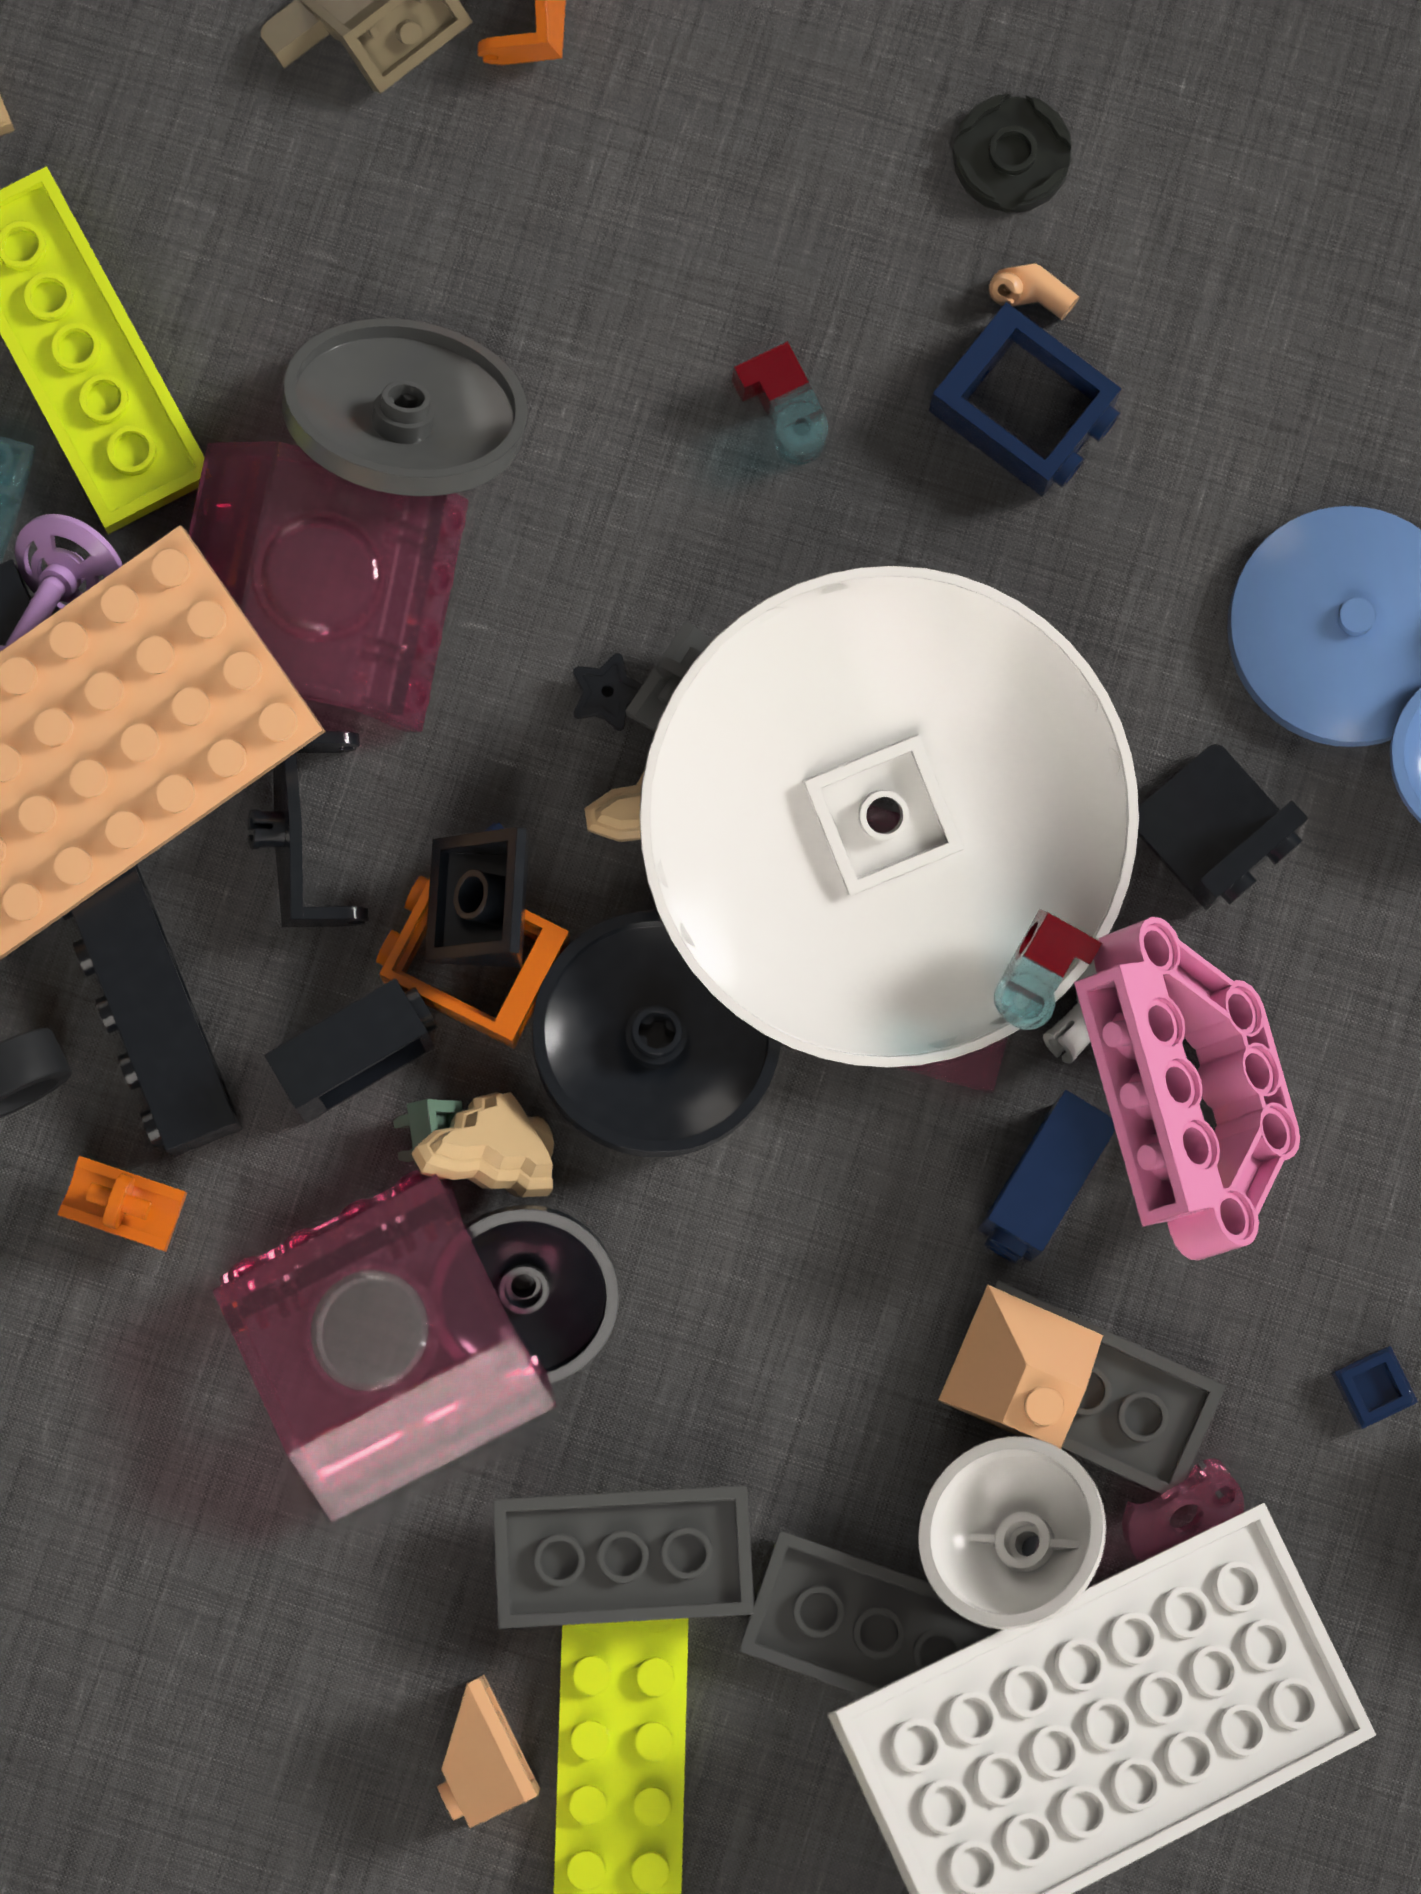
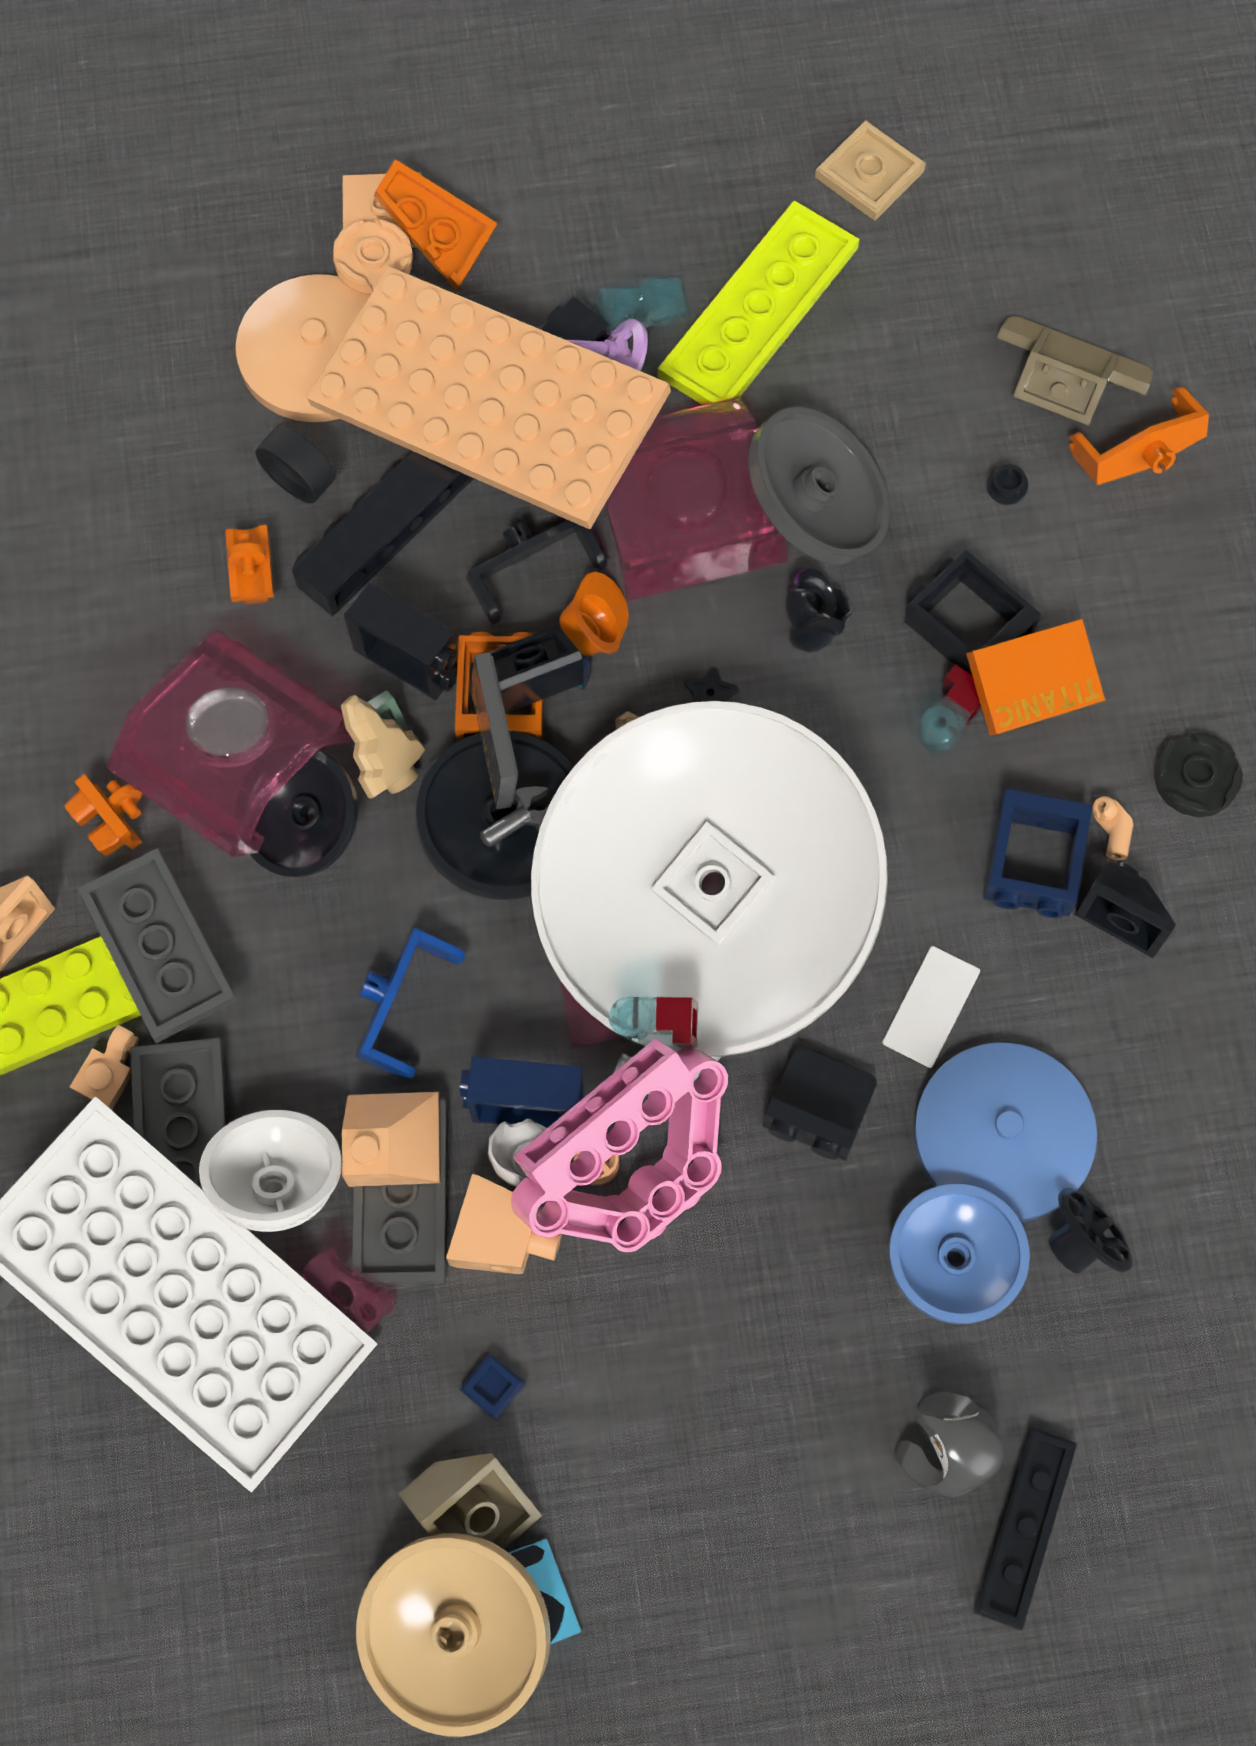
camera: 70 degrees right, 10 degrees down
(421, 1545) = (93, 801): none -> orange hips
(433, 785) = (596, 616): none -> orange piece
(503, 168) = (1007, 484): none -> black plate
(563, 989) = (494, 731): none -> dark grey tile
(568, 501) = (815, 611): none -> black hair
(657, 263) = (985, 584): none -> black window
(678, 1014) = (519, 817): none -> flat silver bar
(752, 1699) = (105, 1073): none -> light nougat plate
(799, 277) = (1035, 677): none -> orange tile
(825, 1289) = (384, 991): none -> blue piece
(1106, 1218) = (506, 1143): none -> white hair
(1150, 330) = (1127, 908): none -> black slope
(1150, 631) = (931, 1006): none -> white sticker
(1190, 1301) = (491, 1234): none -> light nougat torso

